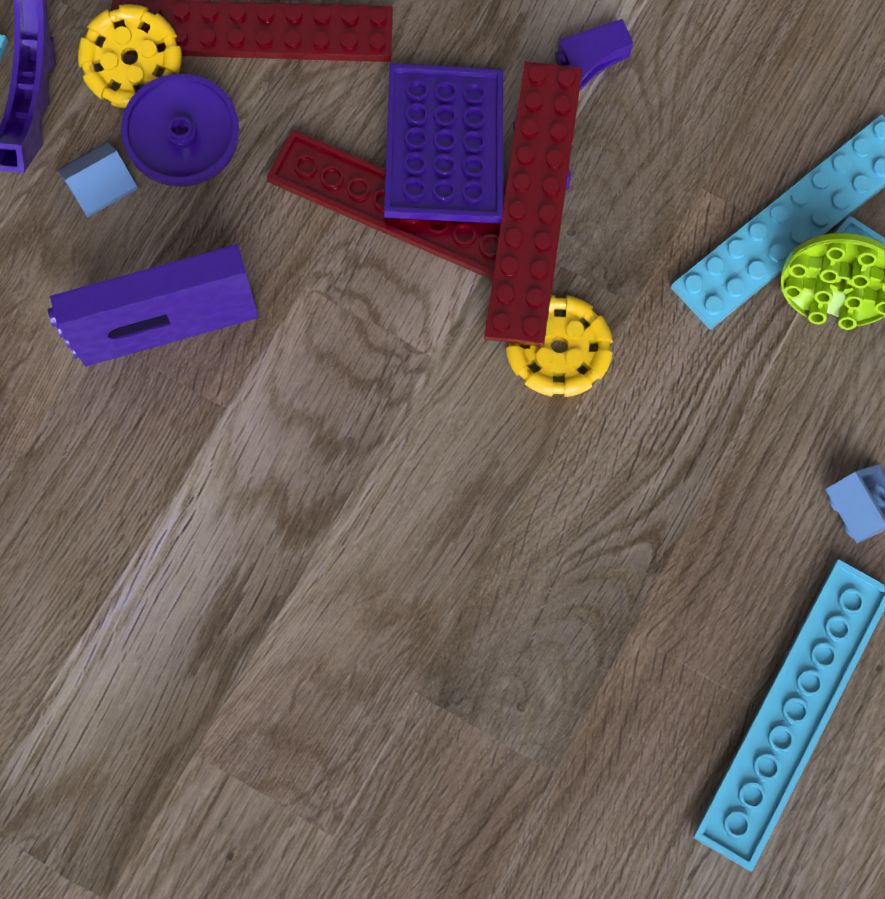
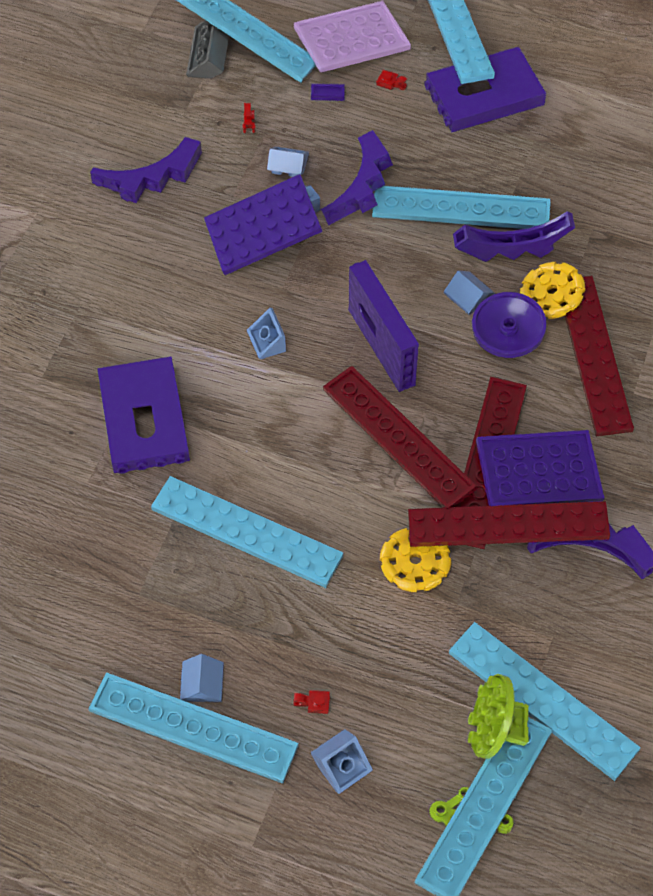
camera: 85 degrees right, 15 degrees down
(112, 499) = (267, 335): none -> medium blue slope
(174, 726) = (140, 386): none -> dark purple panel
(349, 329) = (400, 438): none -> dark red plate
(467, 590) = (247, 531): none -> medium azure plate
(718, 690) = (202, 679): none -> medium blue slope
(770, 526) = (316, 701): none -> red plate

